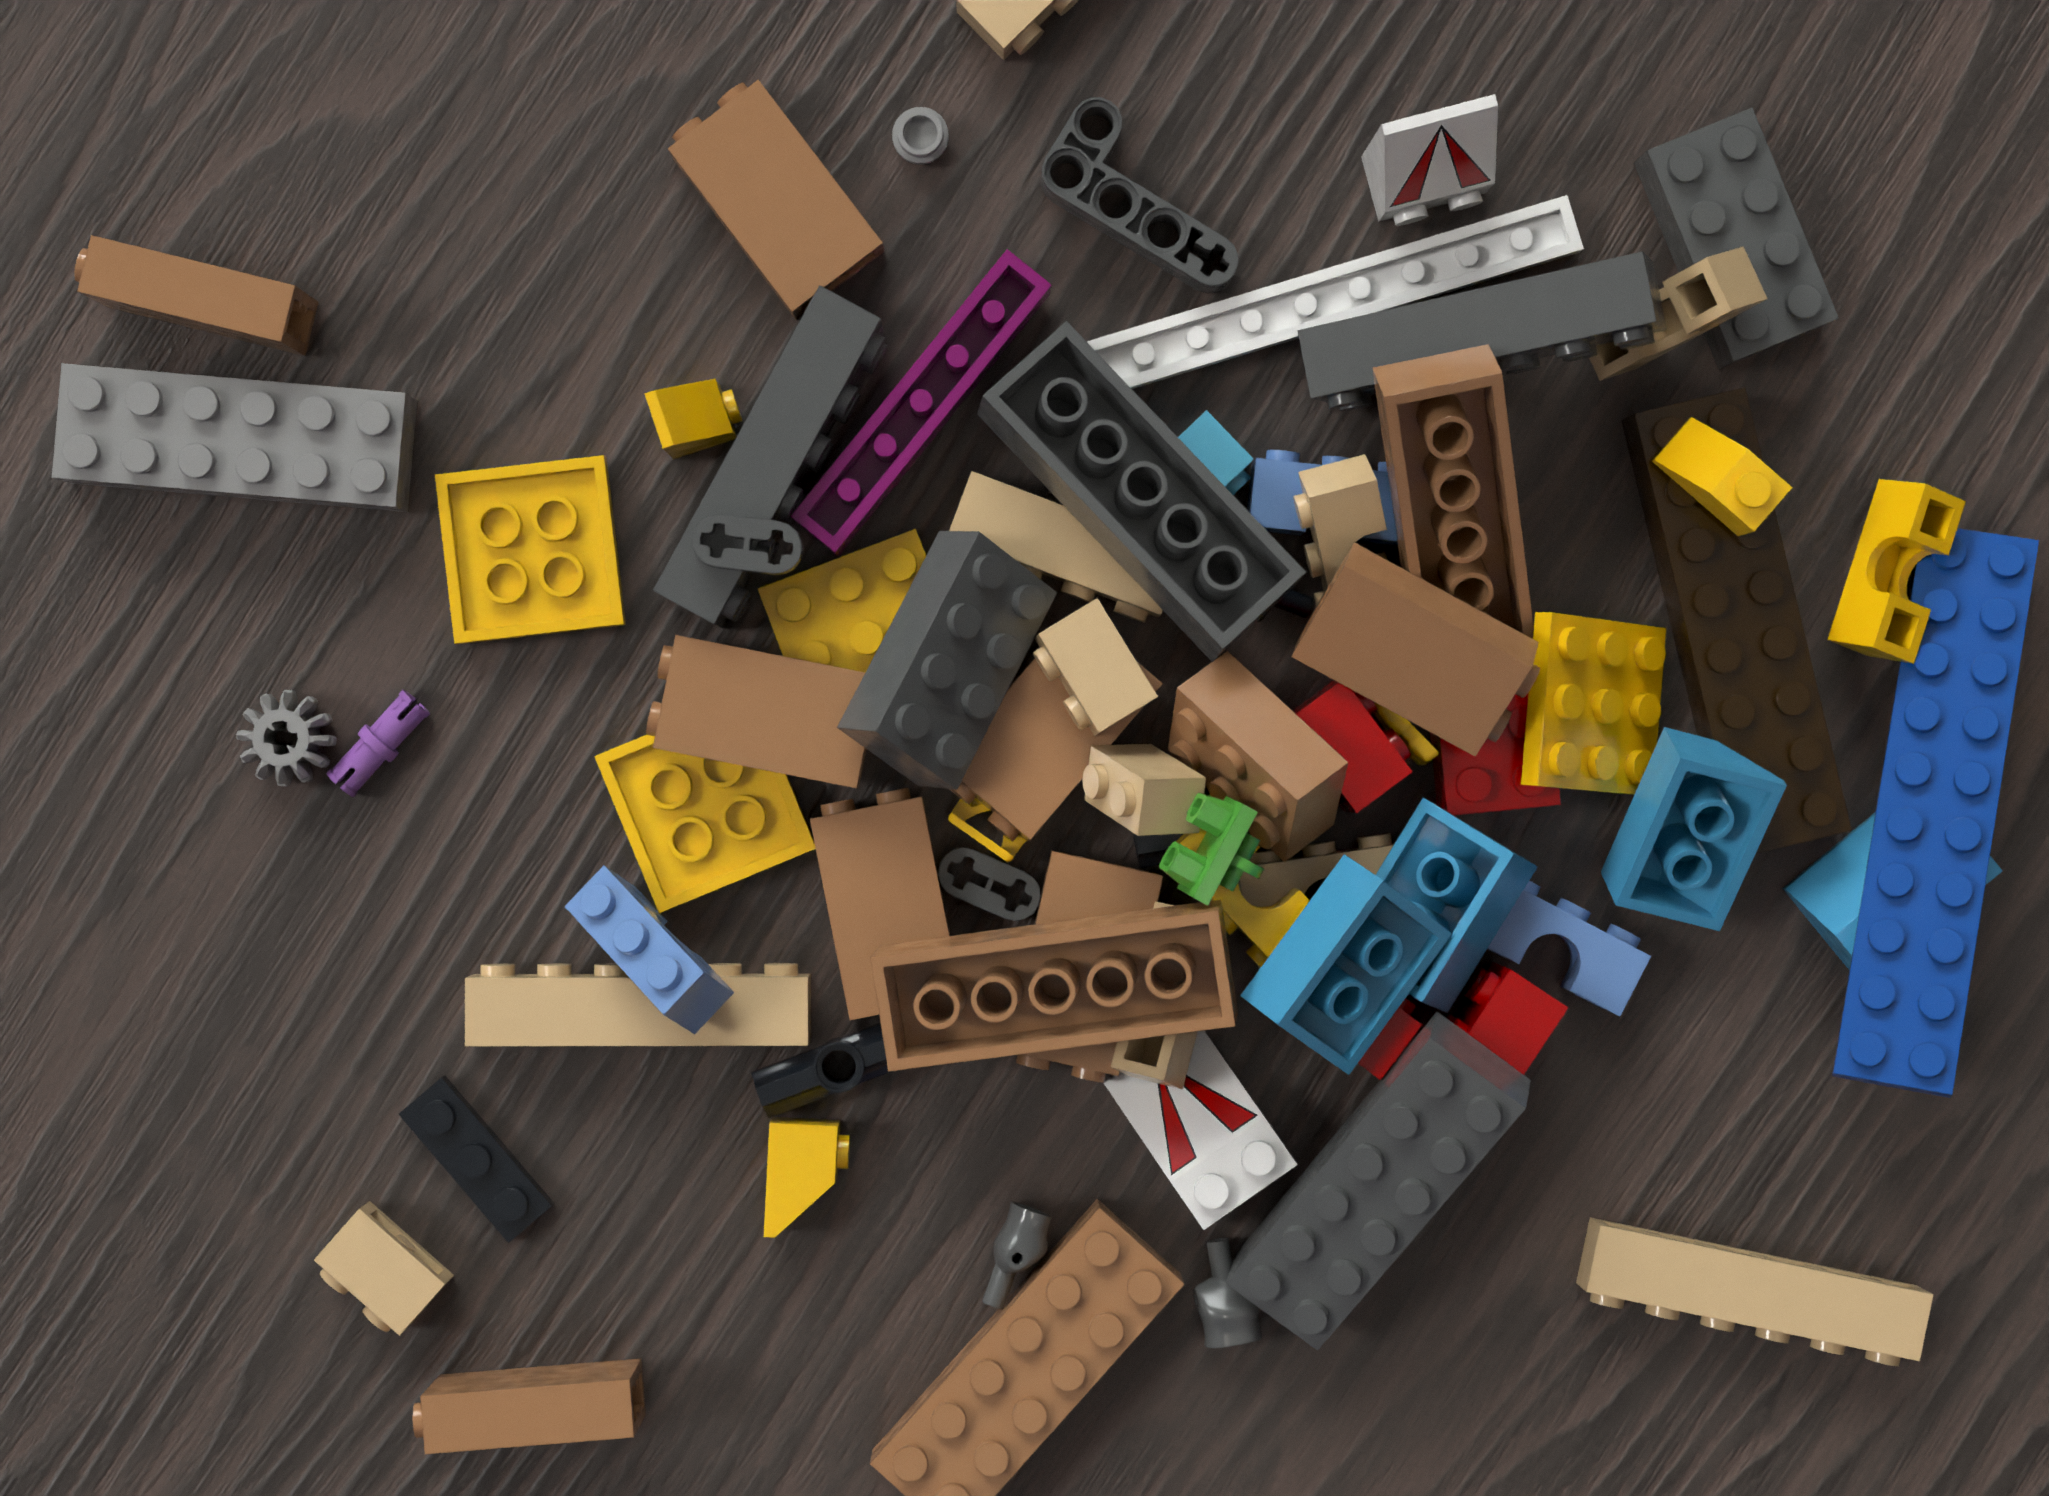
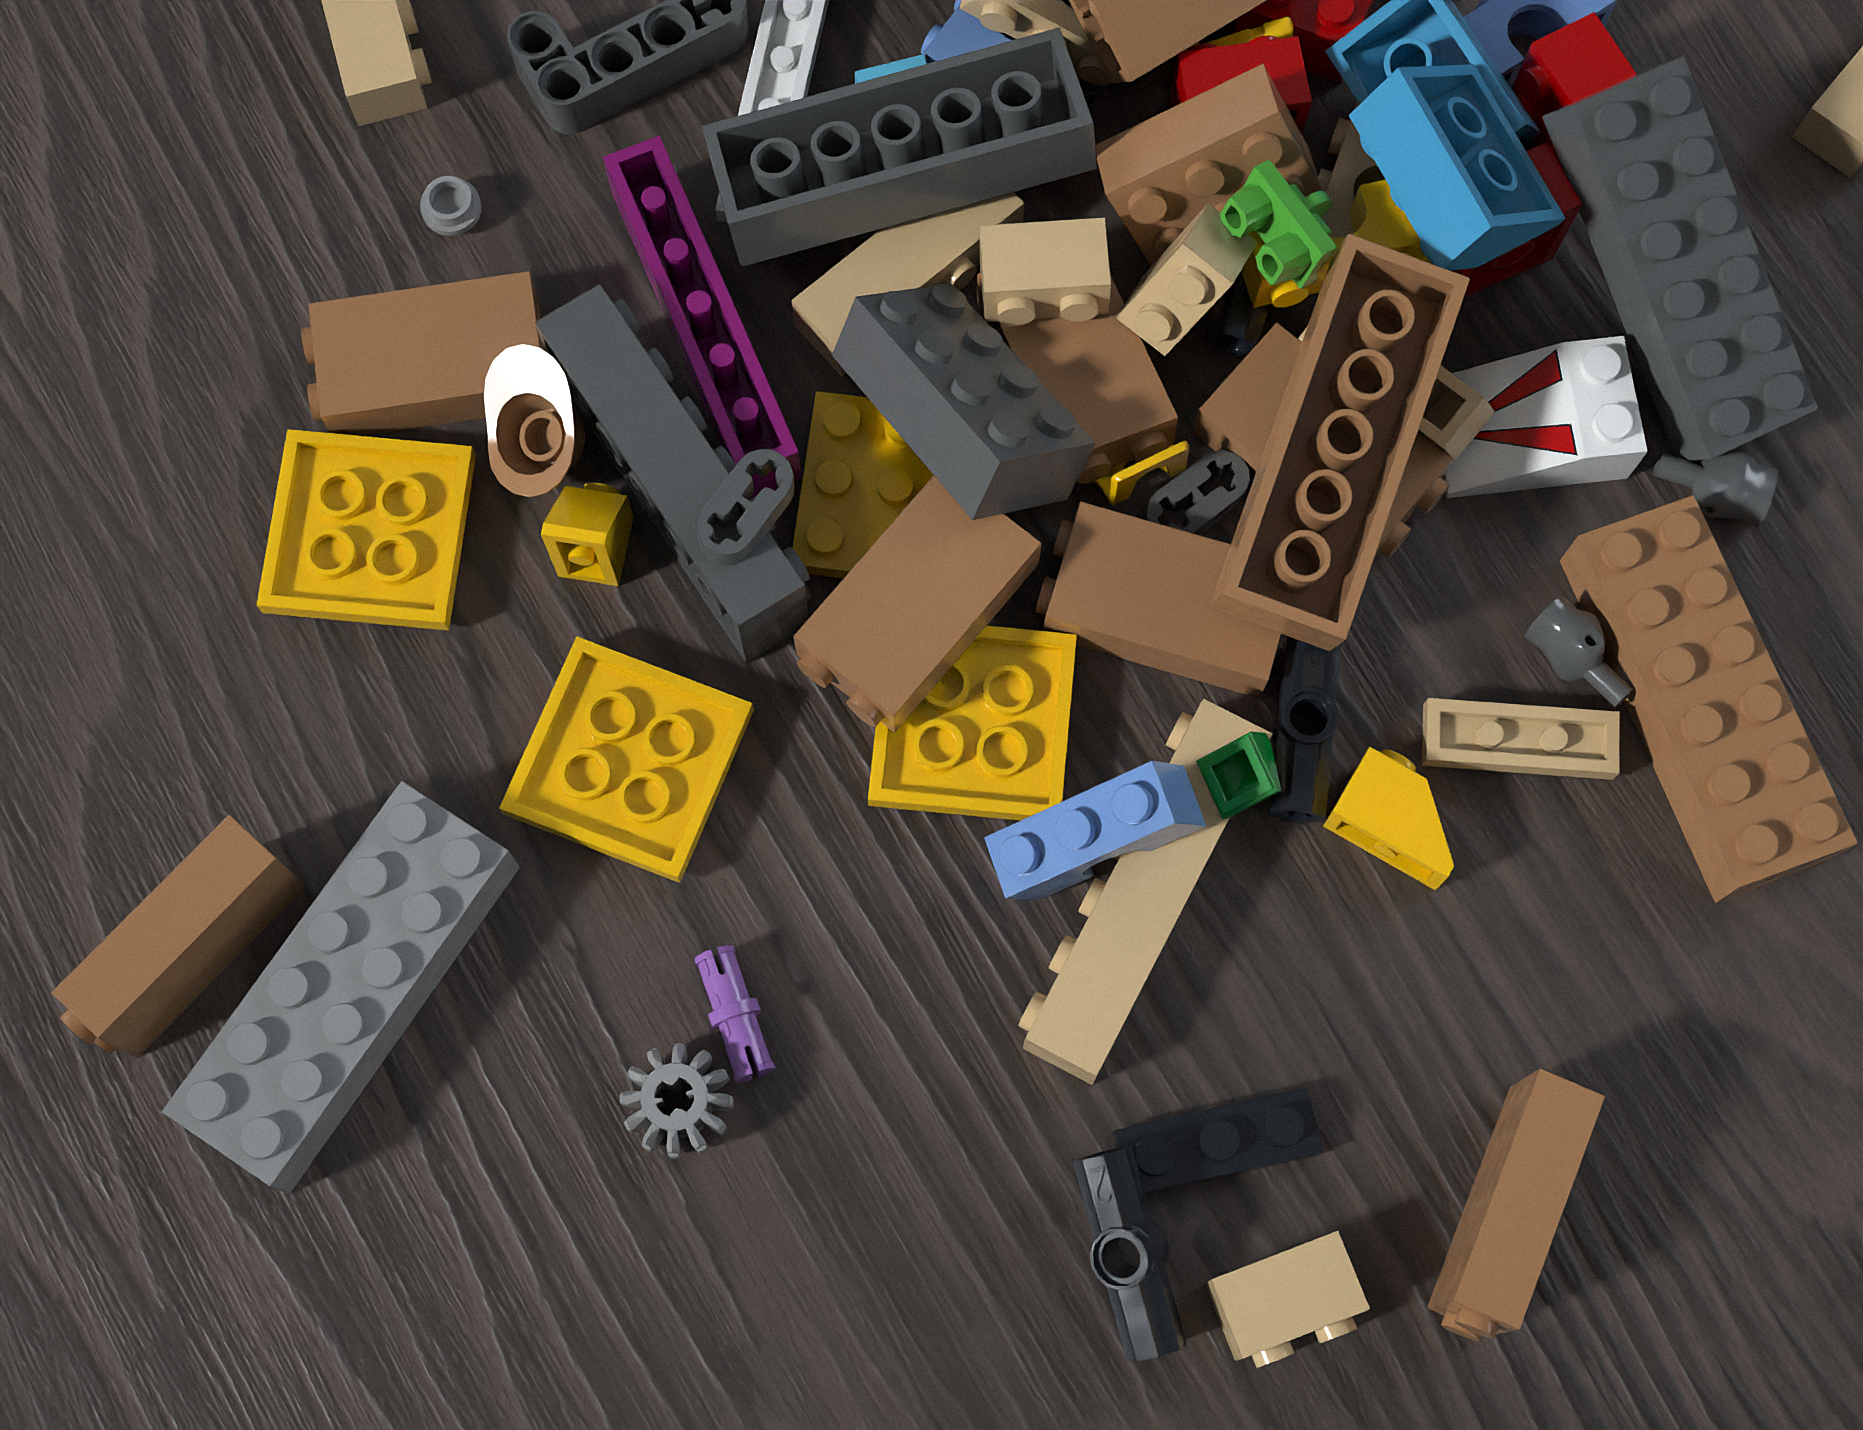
camera: 65 degrees left, 15 degrees down
(332, 1152) = (1141, 1294): none -> black piece
(605, 235) = (367, 530): none -> yellow plate
(751, 321) = (531, 421): none -> medium nougat piece
(757, 1039) = (1240, 773): none -> green slope
(919, 1238) = (1520, 738): none -> tan plate

